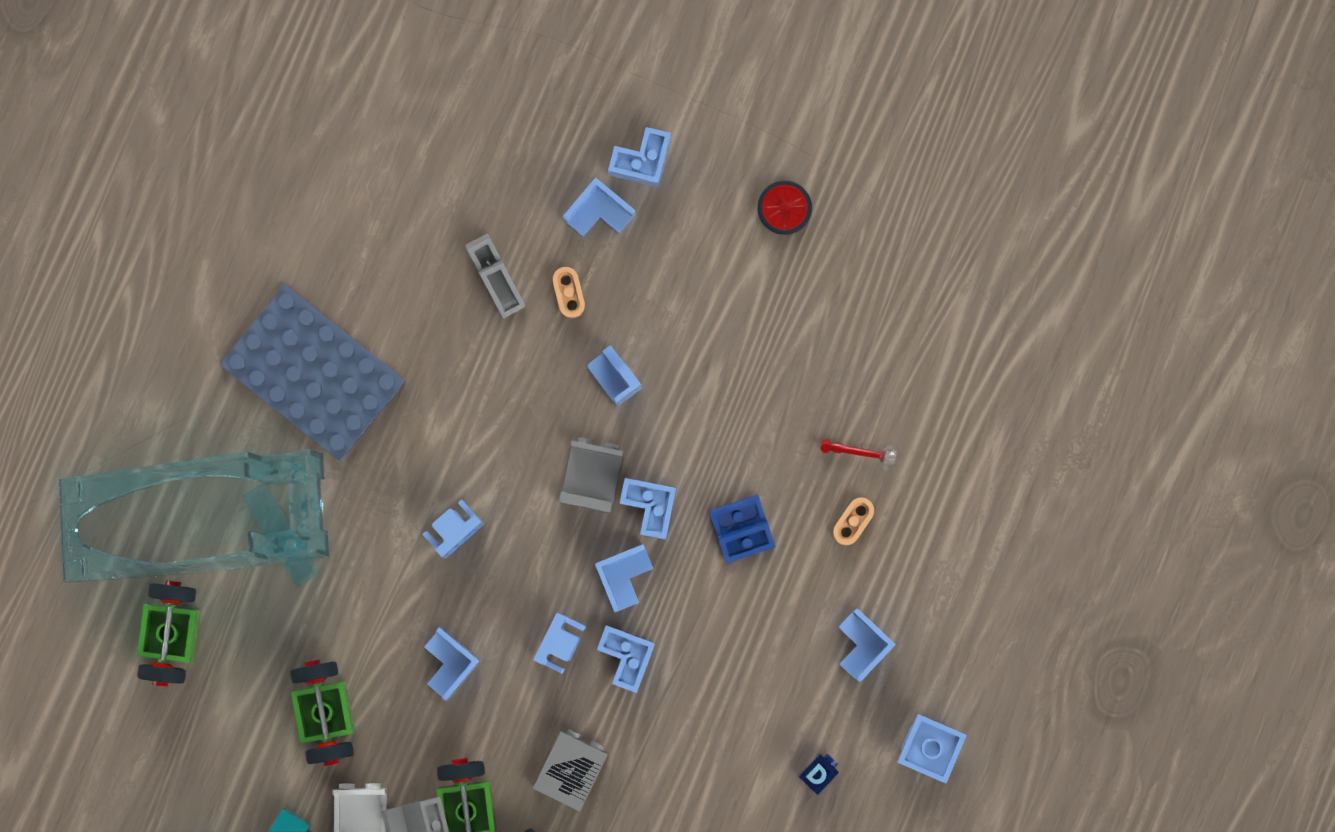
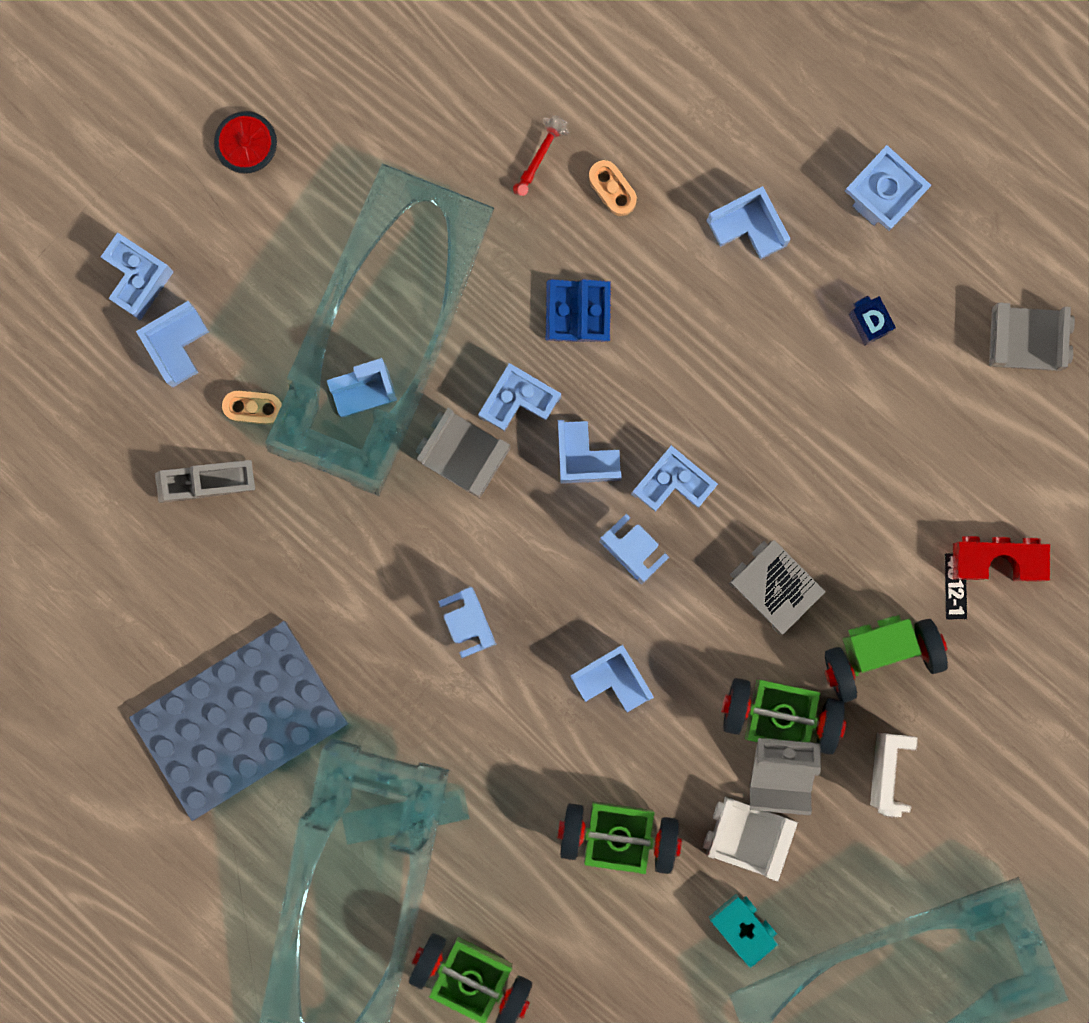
camera: 75 degrees left, 0 degrees up
(775, 341) = (291, 432): none -> clear light blue windscreen

